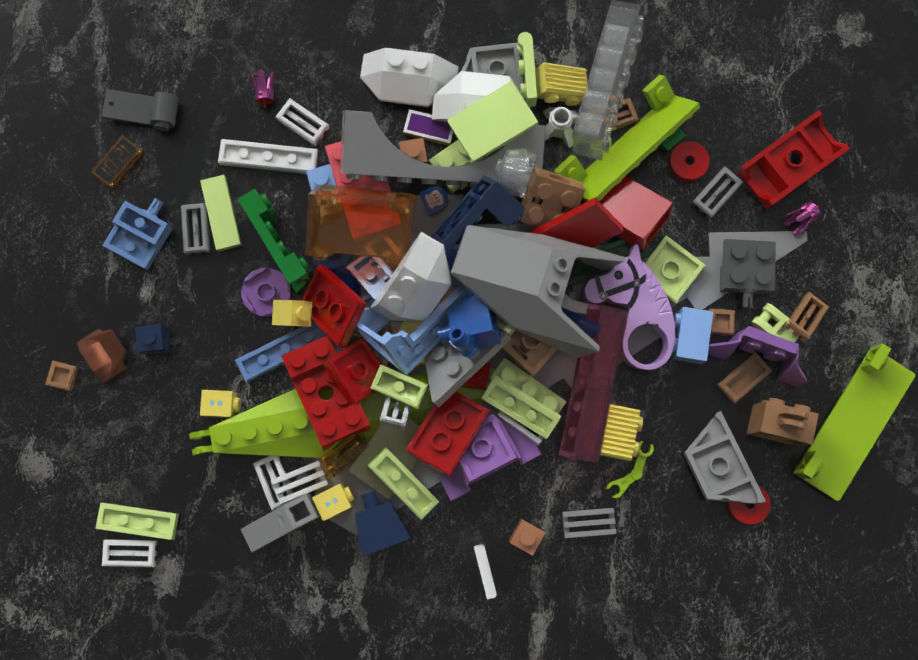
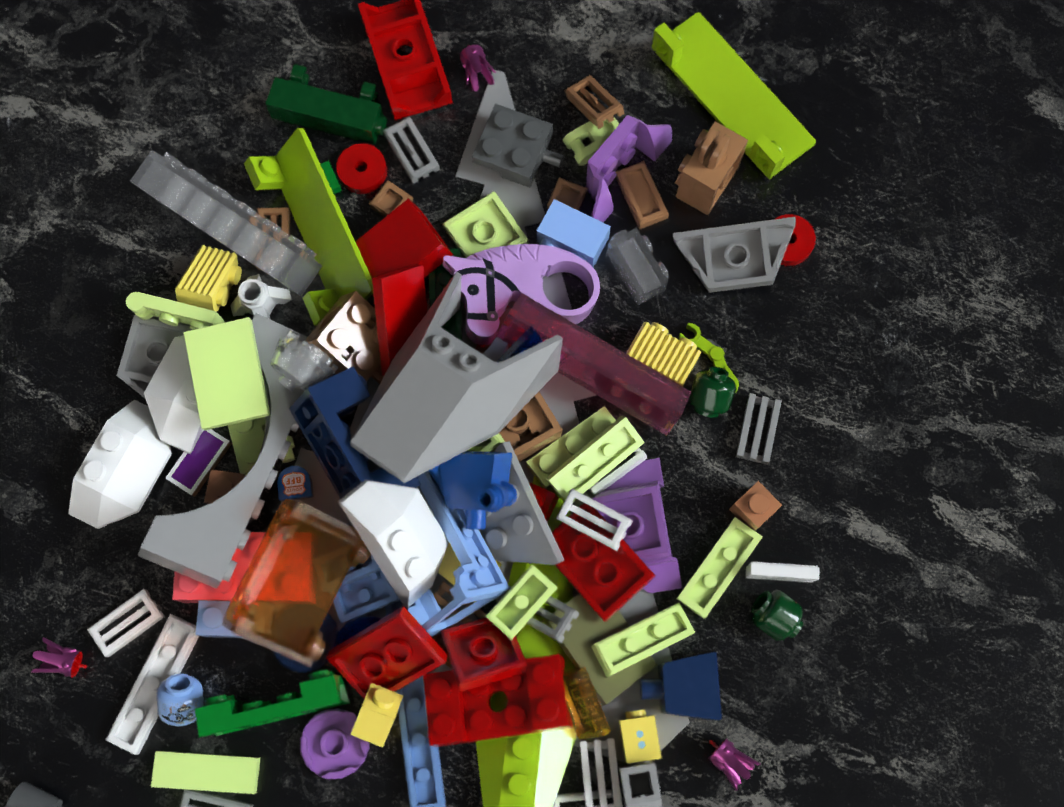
camera: 70 degrees left, 5 degrees down
(261, 176) = (178, 699): none -> light blue head
(338, 568) = (731, 760): none -> flat silver piece
(452, 576) = (777, 615): none -> dark green head
(471, 440) = (619, 532): none -> white tile
(473, 523) = (719, 568): none -> yellowish green plate
(603, 478) = (712, 392): none -> dark green head
(671, 190) = (388, 199): none -> medium nougat tile
(684, 391) = (637, 265): none -> clear brick
(725, 120) = (326, 110): none -> dark green brick

